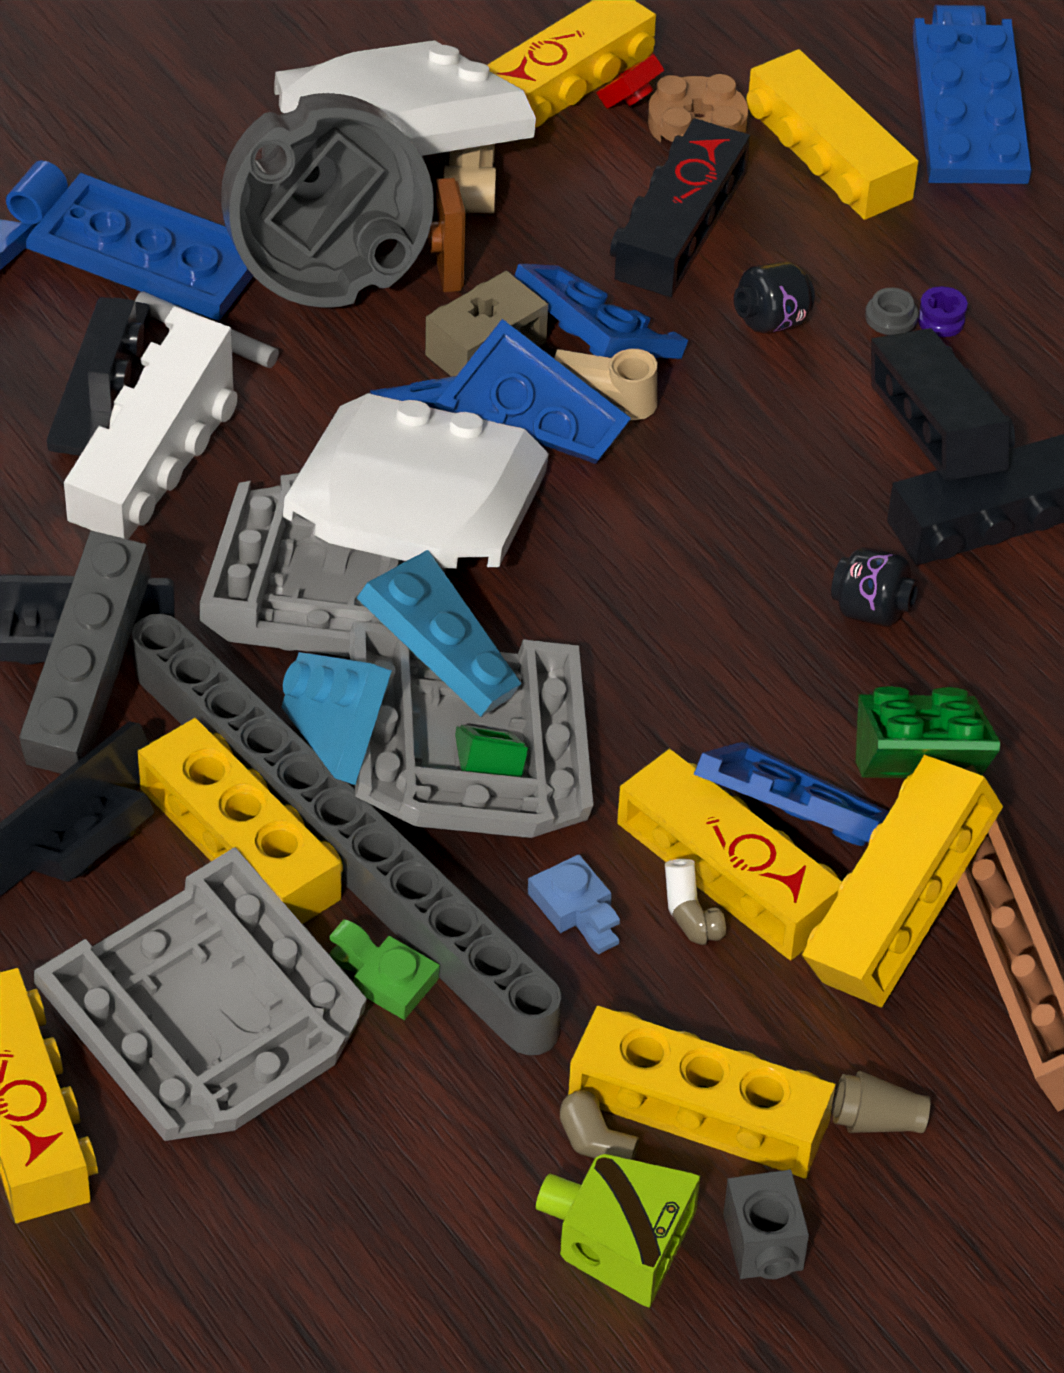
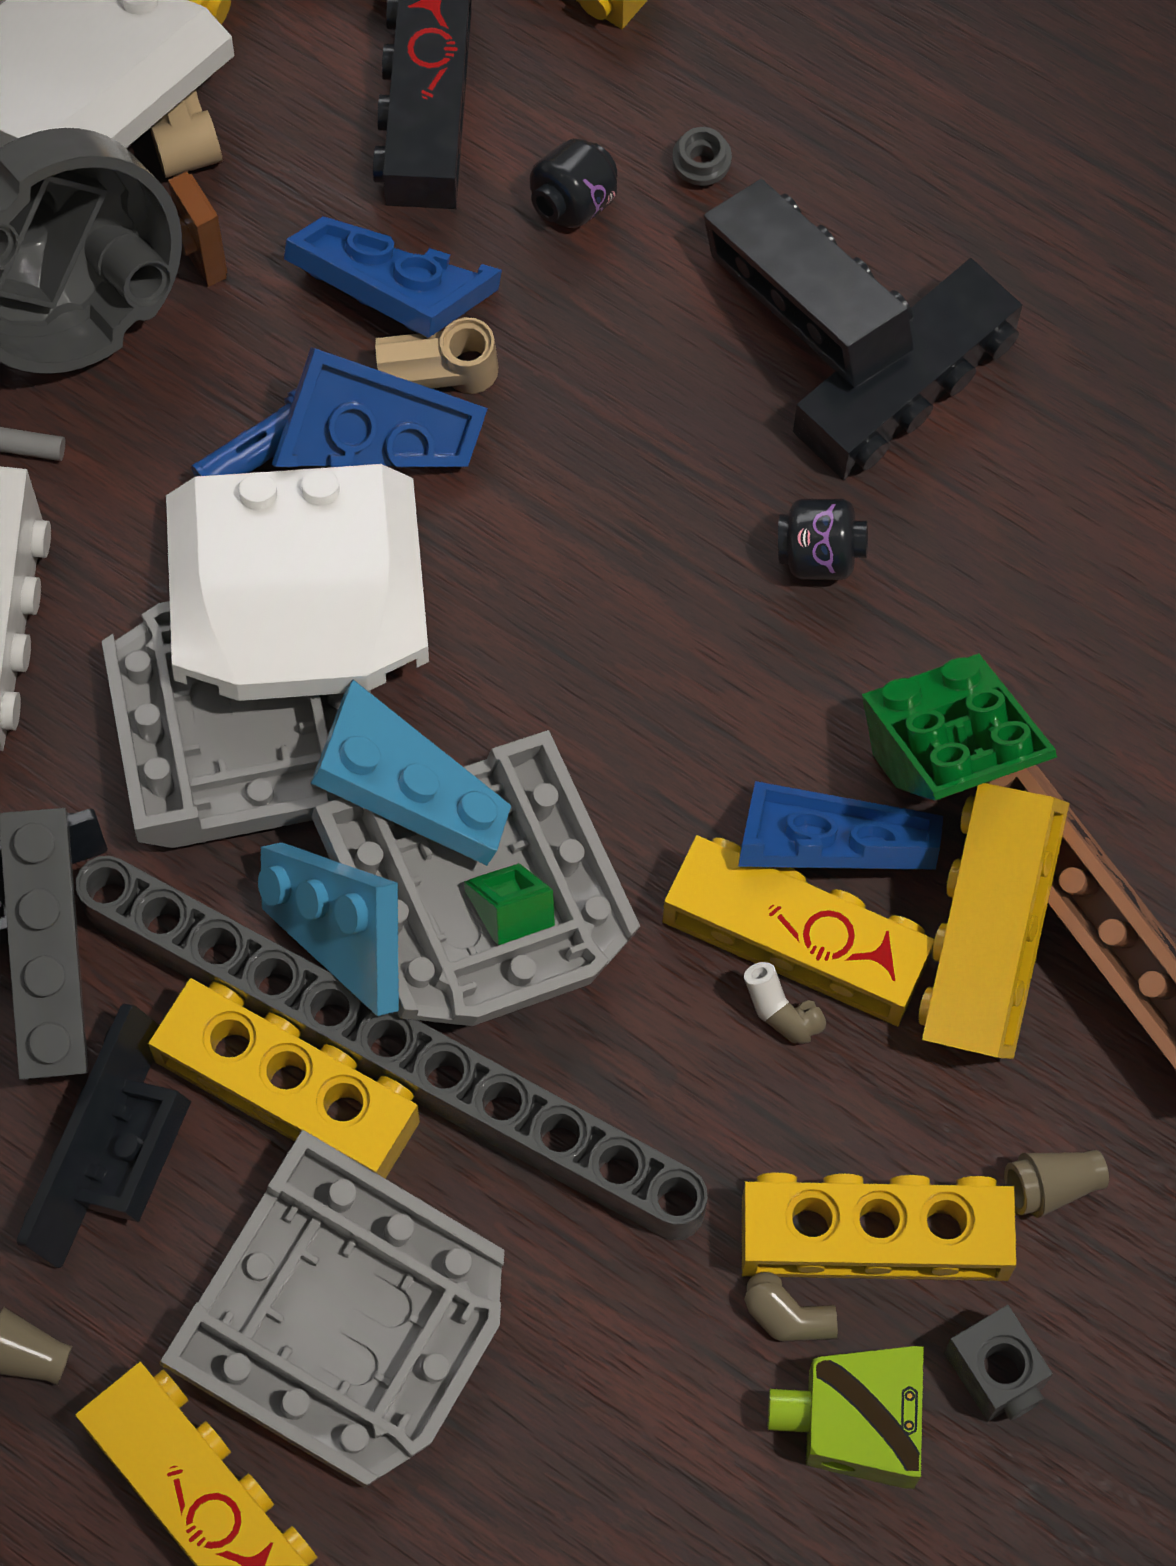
camera: 20 degrees left, 20 degrees up
(386, 975) = (512, 1201): bright green plate -> none
(464, 324) = (274, 335): dark tan brick -> none
(576, 897) = (659, 1036): medium blue plate -> none
(943, 311) = (753, 150): dark purple bush -> none

